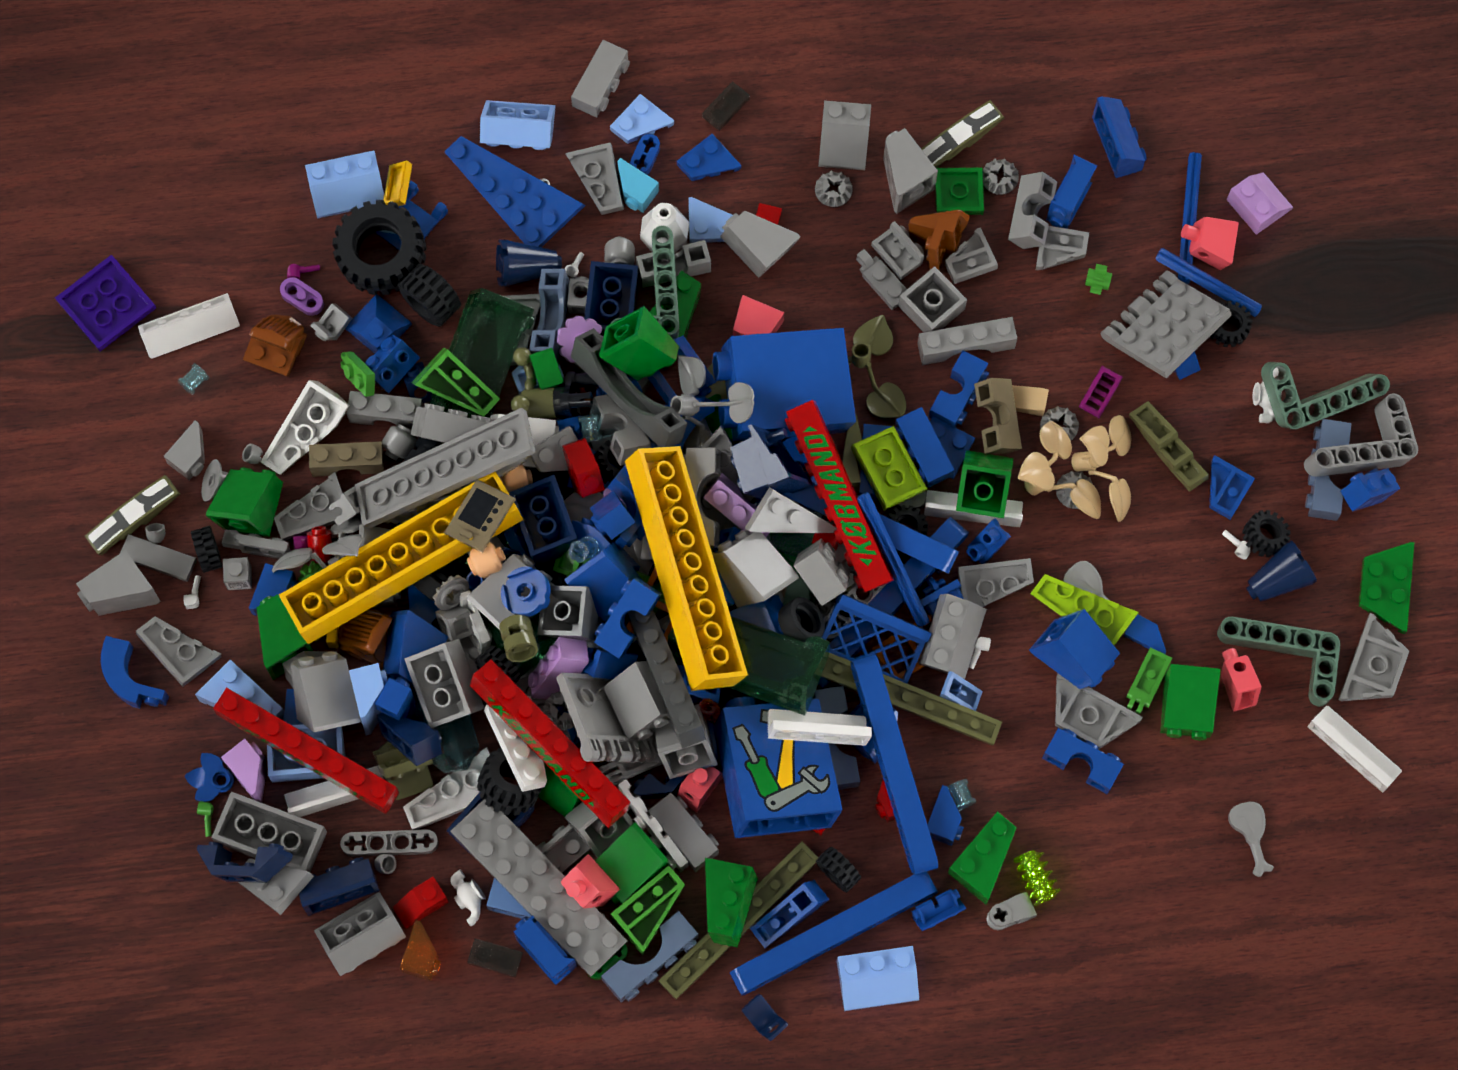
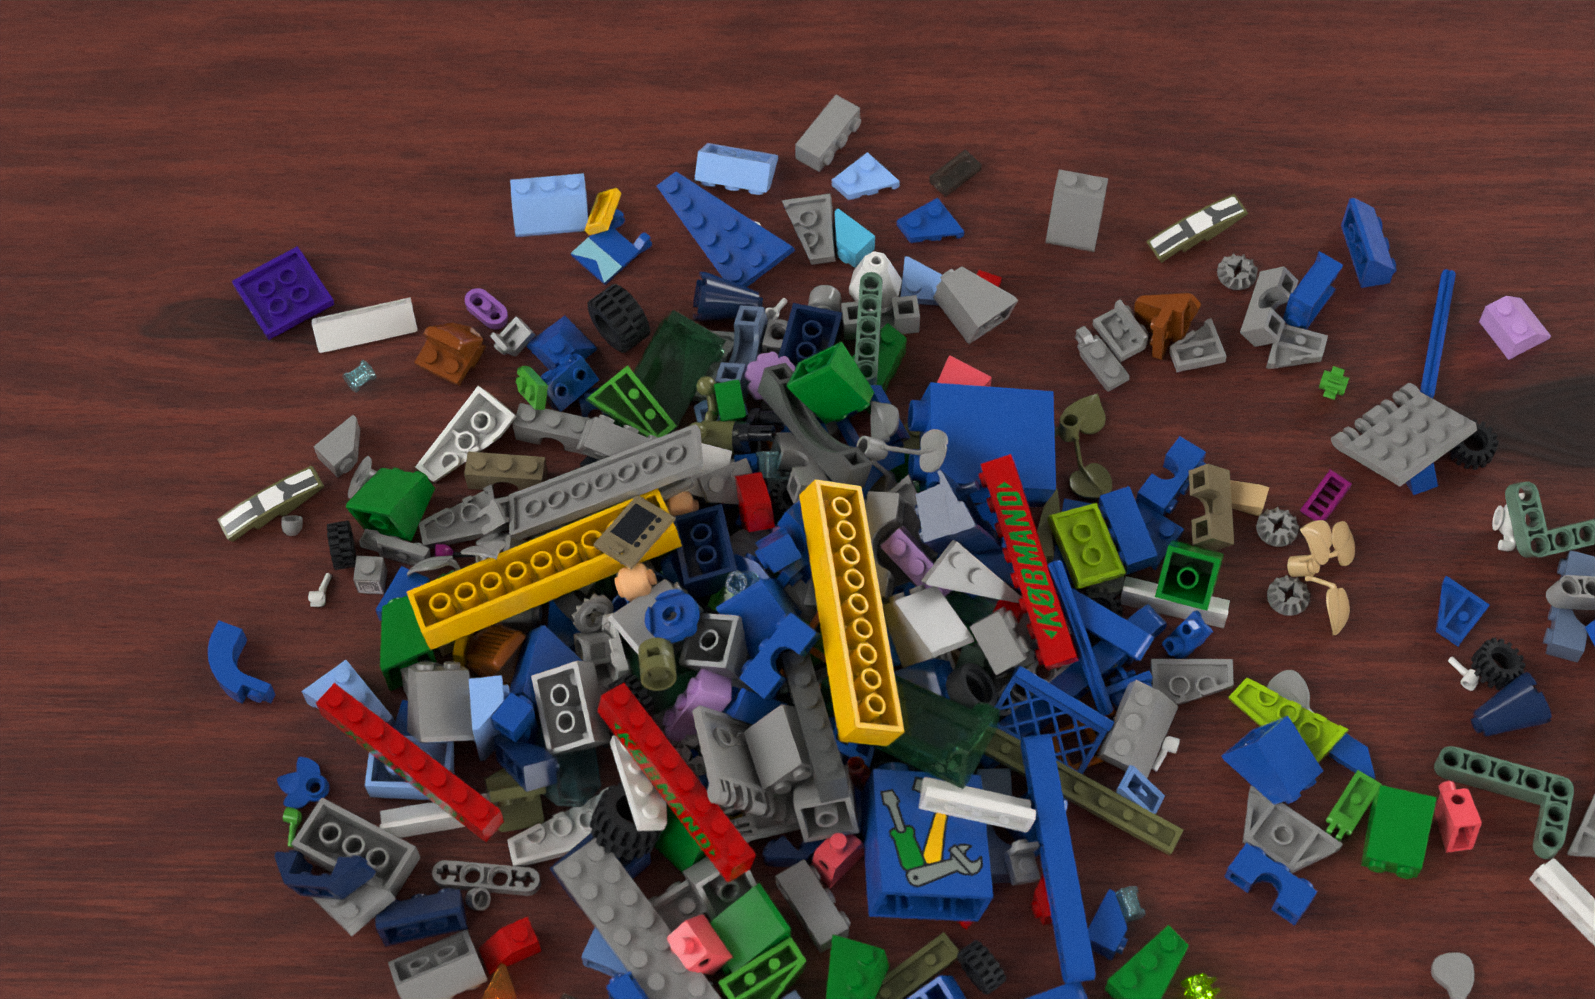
camera: 10 degrees right, 10 degrees down
(116, 587) = (239, 572): light grey slope -> none
(159, 558) = (290, 550): light grey tile -> none
(176, 651) = (291, 647): light grey wing -> none
(247, 766) = (345, 775): lavender slope -> none
(252, 454) = (408, 457): light grey hinge -> none
(294, 270) = (484, 282): magenta hand -> none
(317, 540) = (460, 543): red brick -> none
(363, 223) = (564, 241): black tyre -> none
(398, 442) = (563, 460): light grey head -> none
(468, 895) = (563, 946): white piece -> none
(637, 806) = (779, 895): white wing -> none
(640, 153) = (868, 214): blue beam -> none
(832, 198) = (1056, 273): light grey gear -> none
(863, 772) = (1021, 862): none -> light grey bracket
(907, 170) = (1140, 252): light grey slope -> none
(932, 301) = (1152, 385): light grey brick -> none
(960, 190) = (1193, 276): green plate -> none
(989, 335) = (1156, 429): light grey arch -> none
(1038, 474) = (1249, 560): tan plant -> none
(1168, 446) = (1395, 561): olive slope -> none
(1207, 281) = (1451, 397): blue axle -> none
(1212, 240) = (1461, 357): coral torso -> none

